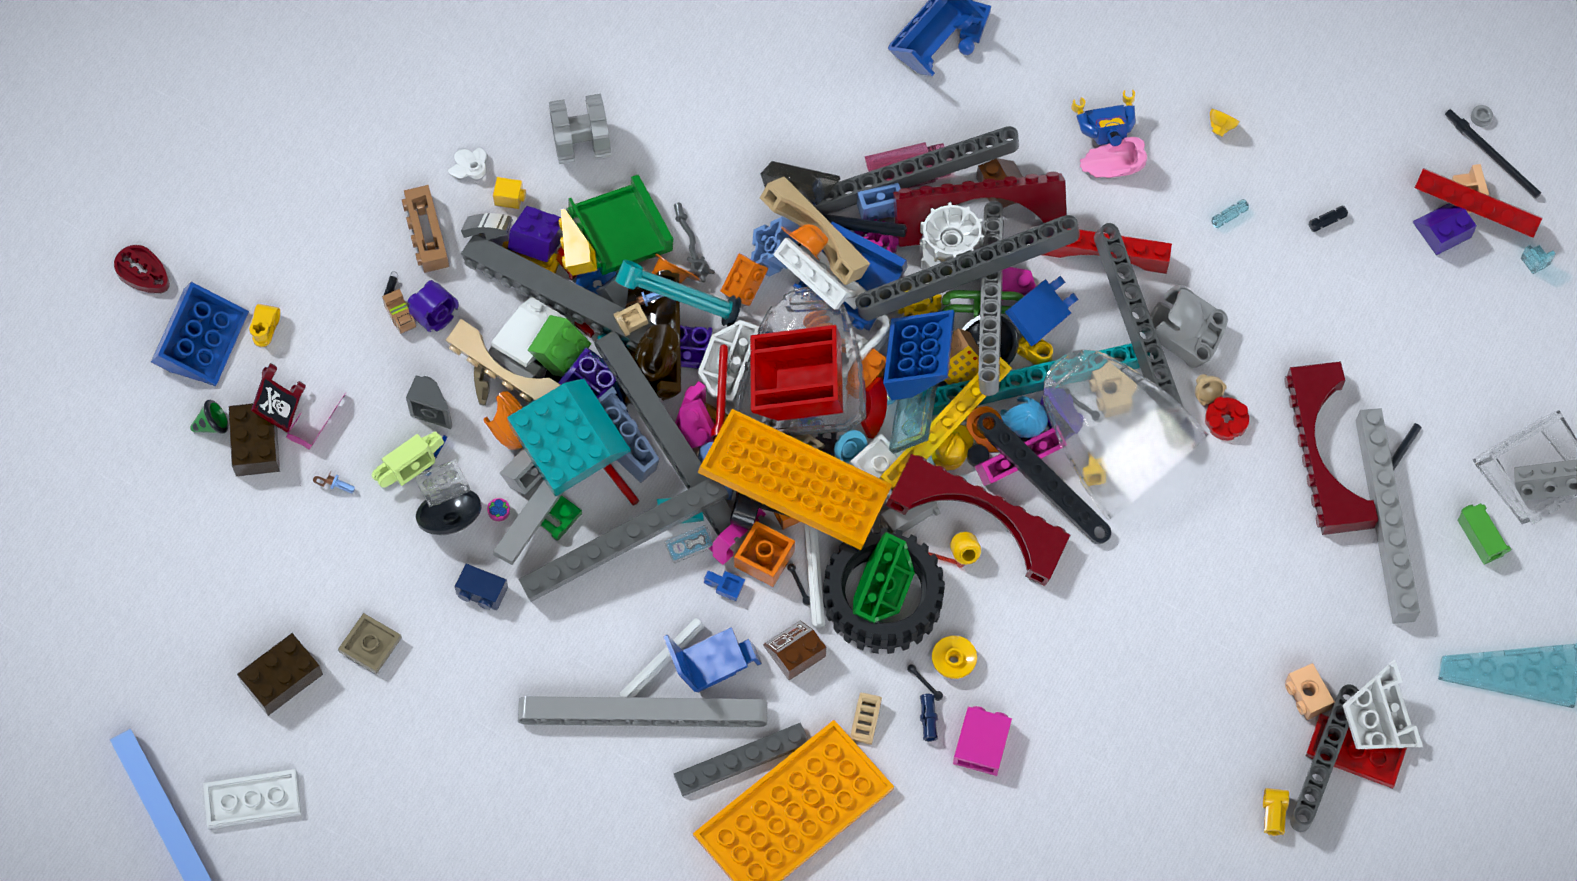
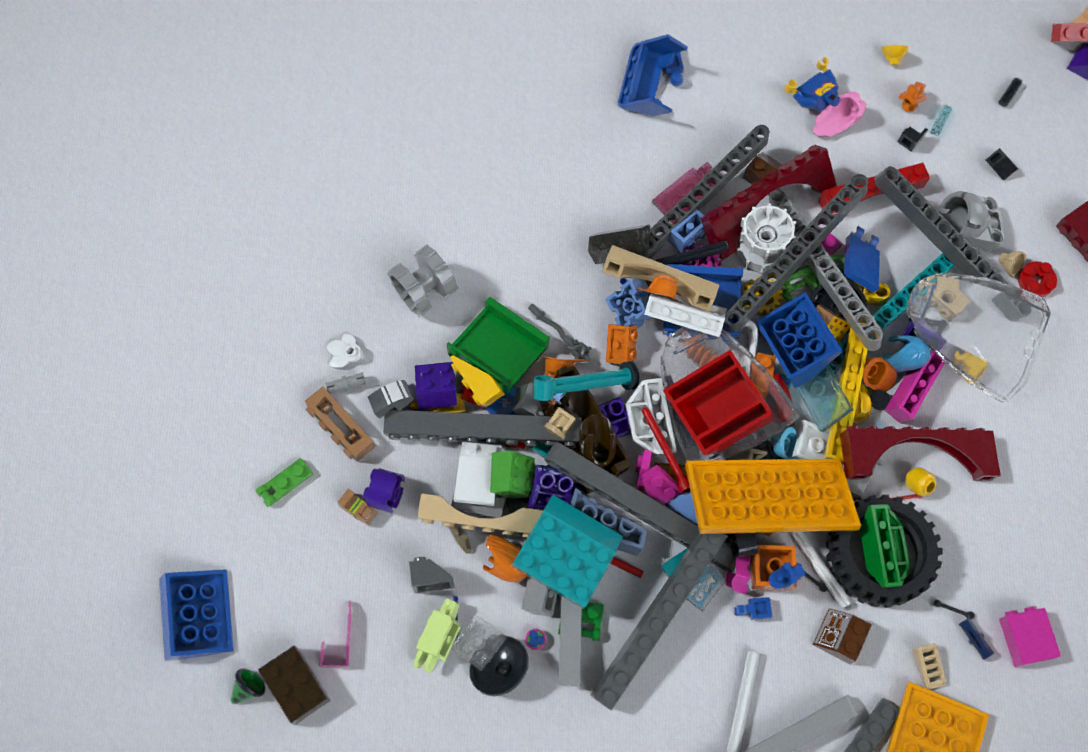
camera: 30 degrees left, 5 degrees up
(146, 260) = (111, 568): dark red piece -> none
(264, 324) = (245, 572): yellow piece -> none
(276, 402) = (298, 643): flag -> none
(334, 481) = (384, 687): piece -> none
(345, 258) = (284, 482): none -> bright green plate
(391, 284) = (336, 488): black piece -> none
(453, 194) = (345, 383): none -> light grey pin
(481, 587) = (562, 718): dark blue brick -> none
(508, 193) = (391, 360): yellow brick -> none
(712, 659) = (791, 683): piece -> none
(766, 556) = (786, 576): none -> blue hips
(954, 647) = (974, 574): yellow dish -> none
(1043, 478) = (947, 394): black plate -> none
(1184, 217) = (910, 138): none -> black panel
(1211, 173) = (913, 96): none -> orange hips
(1264, 286) = (1001, 164): none -> black panel

